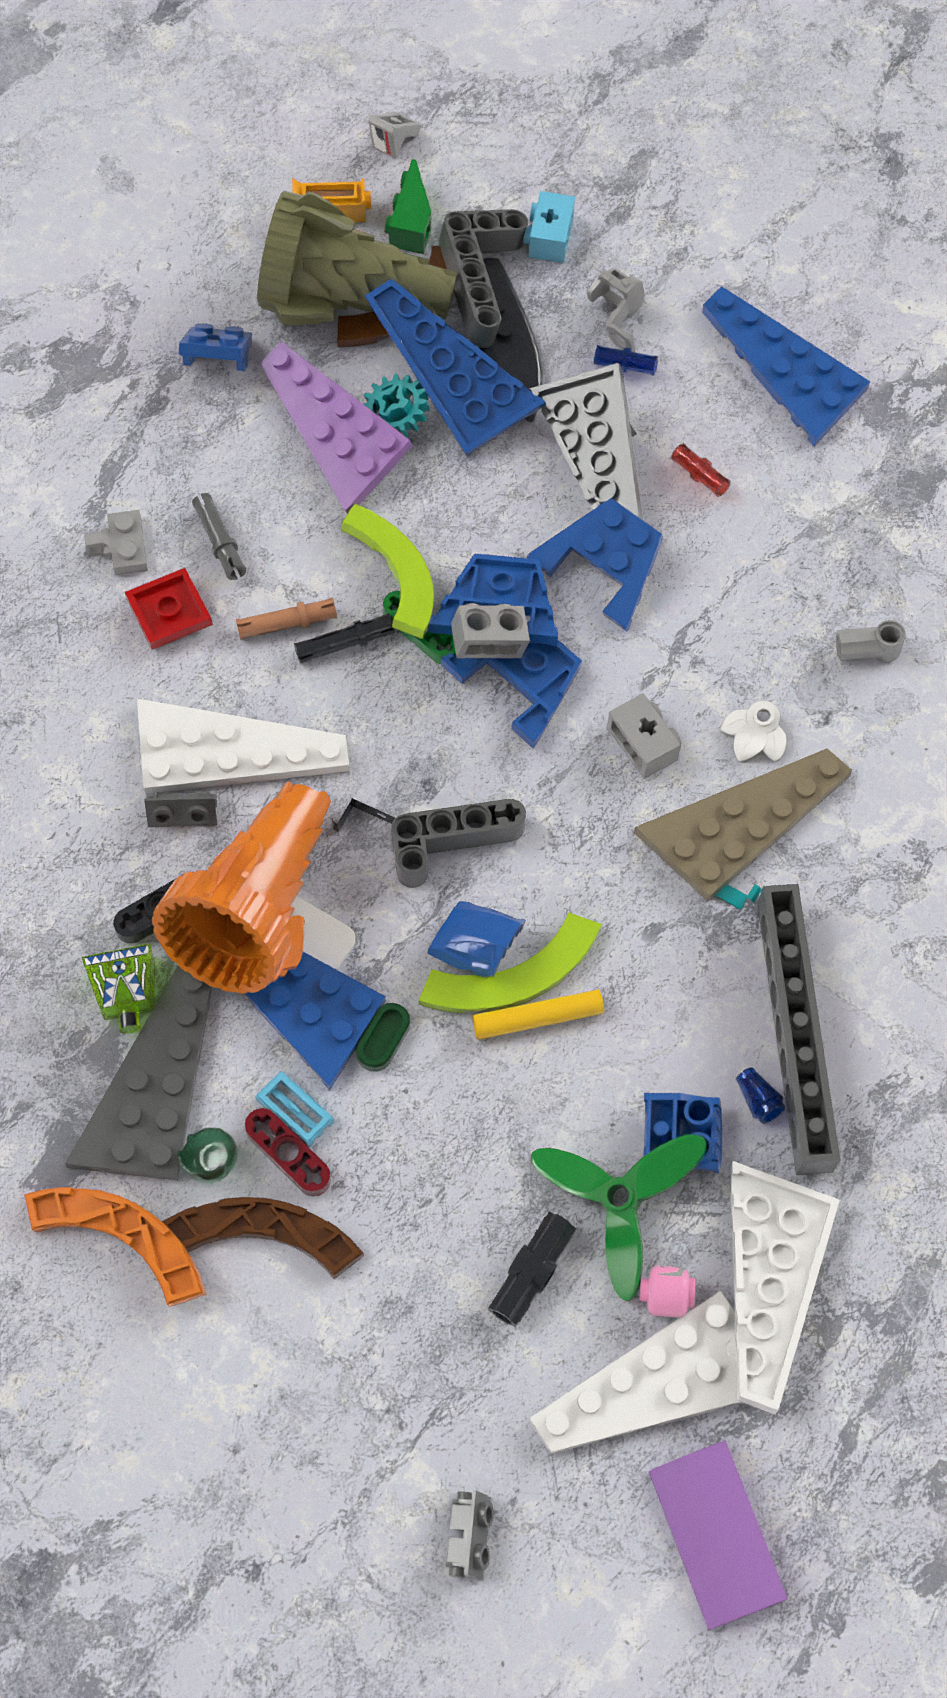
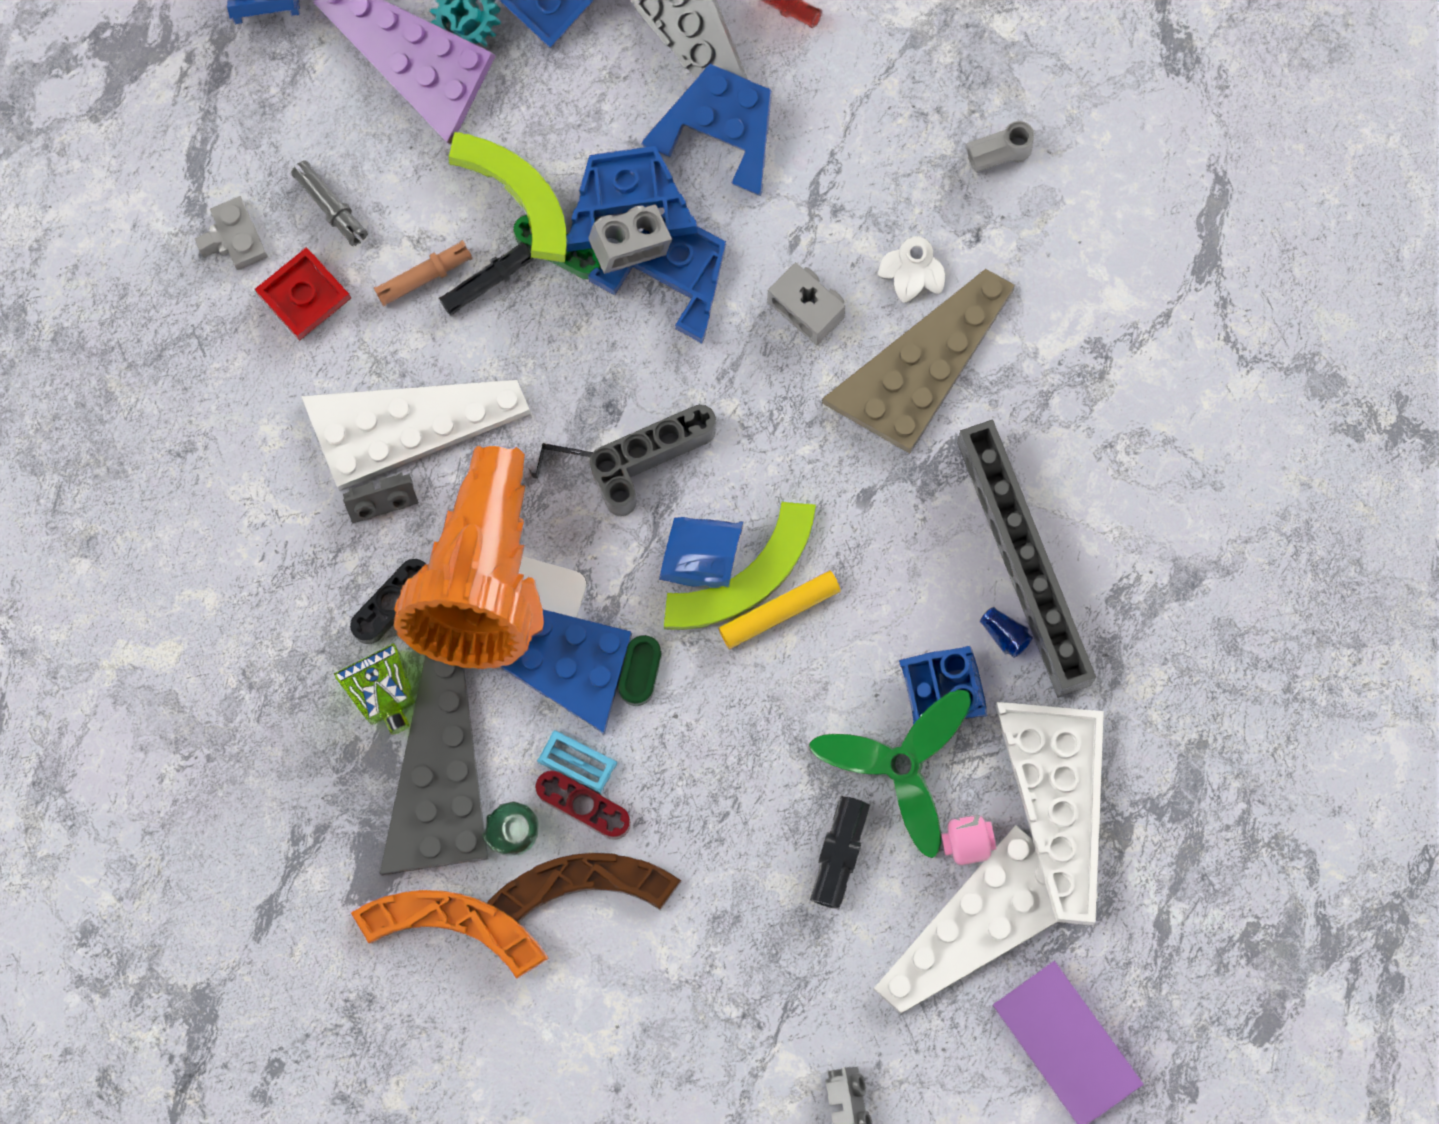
camera: 10 degrees left, 10 degrees up
(738, 898) = (936, 442): teal piece -> none

